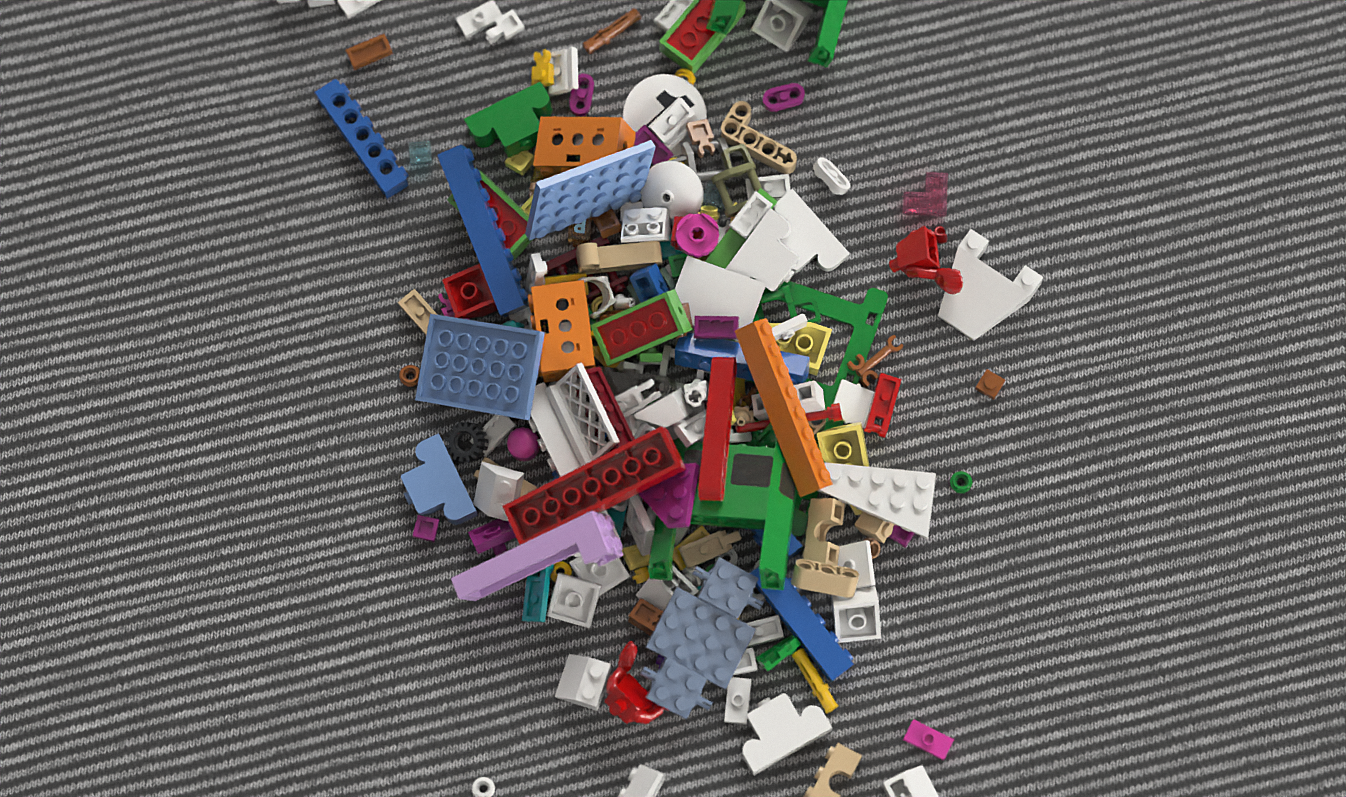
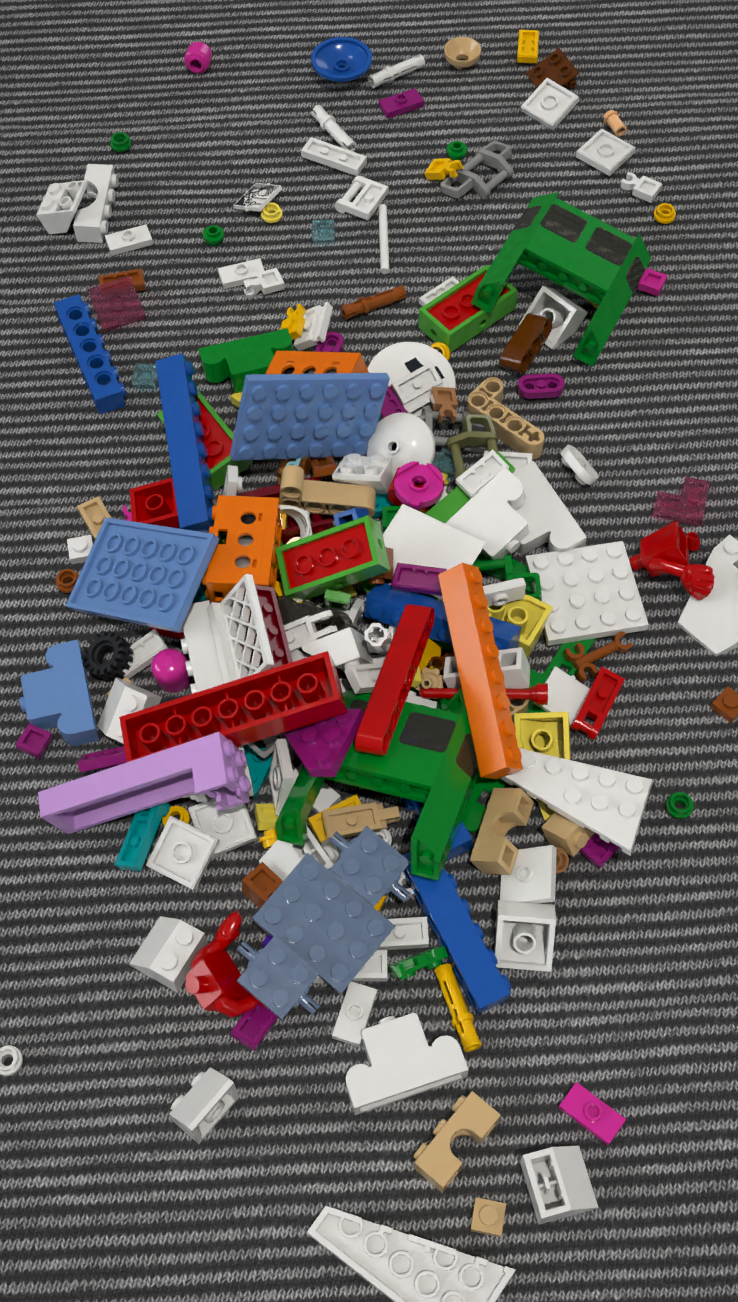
camera: 10 degrees right, 15 degrees down
(371, 78) = (116, 303): none -> clear pink plate
(411, 341) = (79, 548): none -> white plate
(664, 727) = (254, 1027): none -> magenta plate
(762, 54) = (526, 343): none -> reddish brown beam
(825, 578) = (493, 879): tan beam -> none
(858, 302) = (589, 593): none -> white plate

